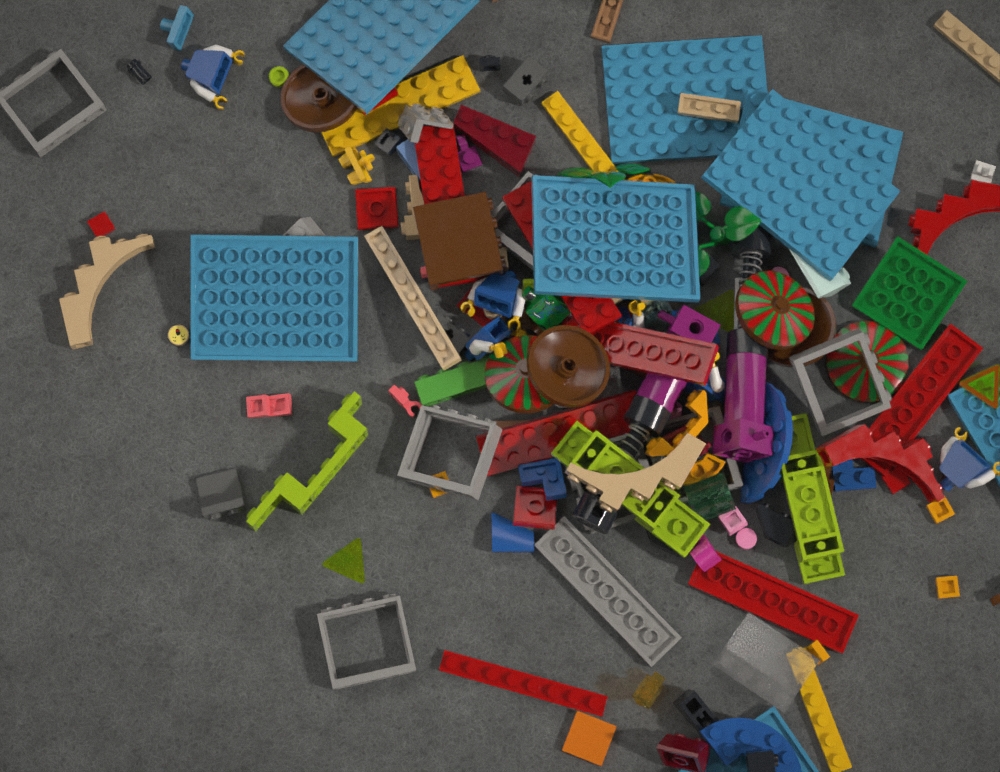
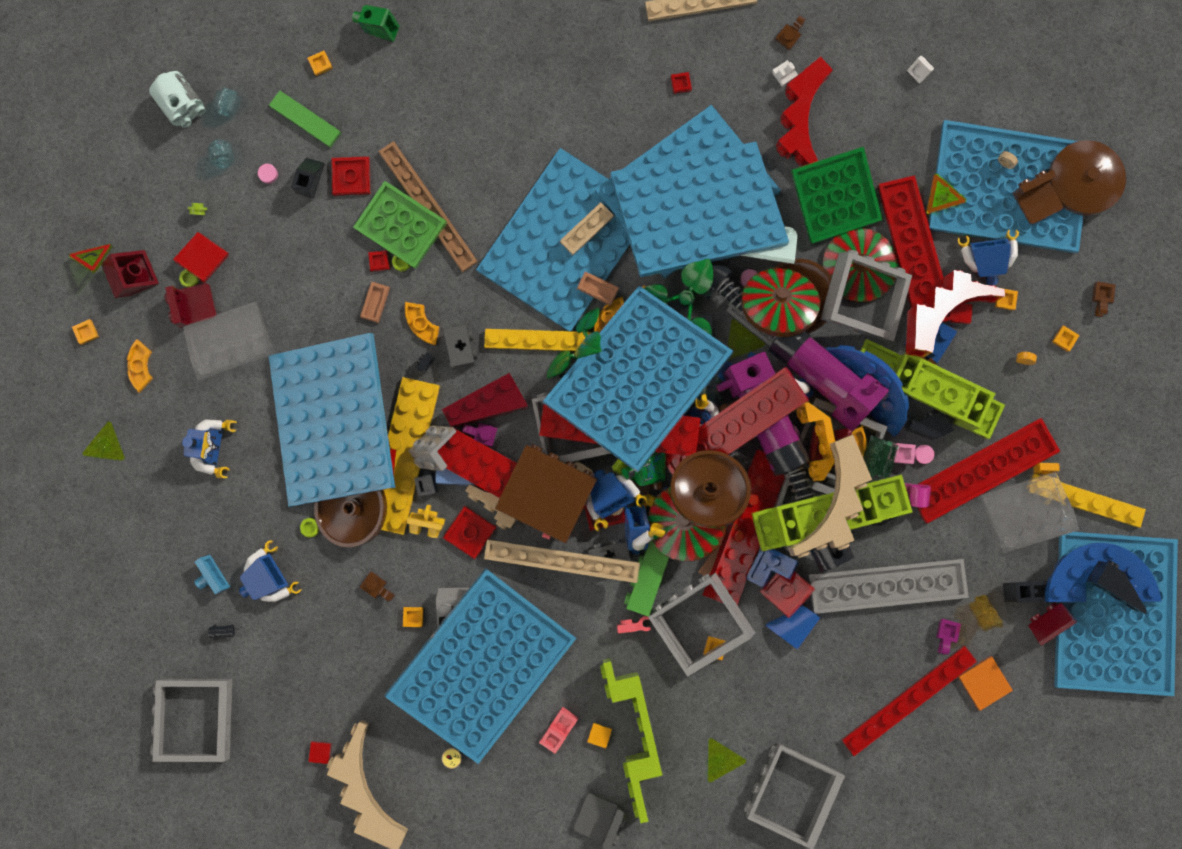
camera: 50 degrees left, 5 degrees up
(270, 215) = (413, 616): none -> light orange tile
(272, 166) = (375, 586): none -> reddish brown plate
(291, 442) = (599, 735): none -> light orange tile
(519, 35) = (420, 324): none -> light orange tile
(606, 672) = (948, 632): none -> magenta plate
(666, 155) = (597, 288): none -> nougat tile
(901, 93) = (681, 82): none -> red tile
(901, 564) = (1026, 358): none -> light orange tile

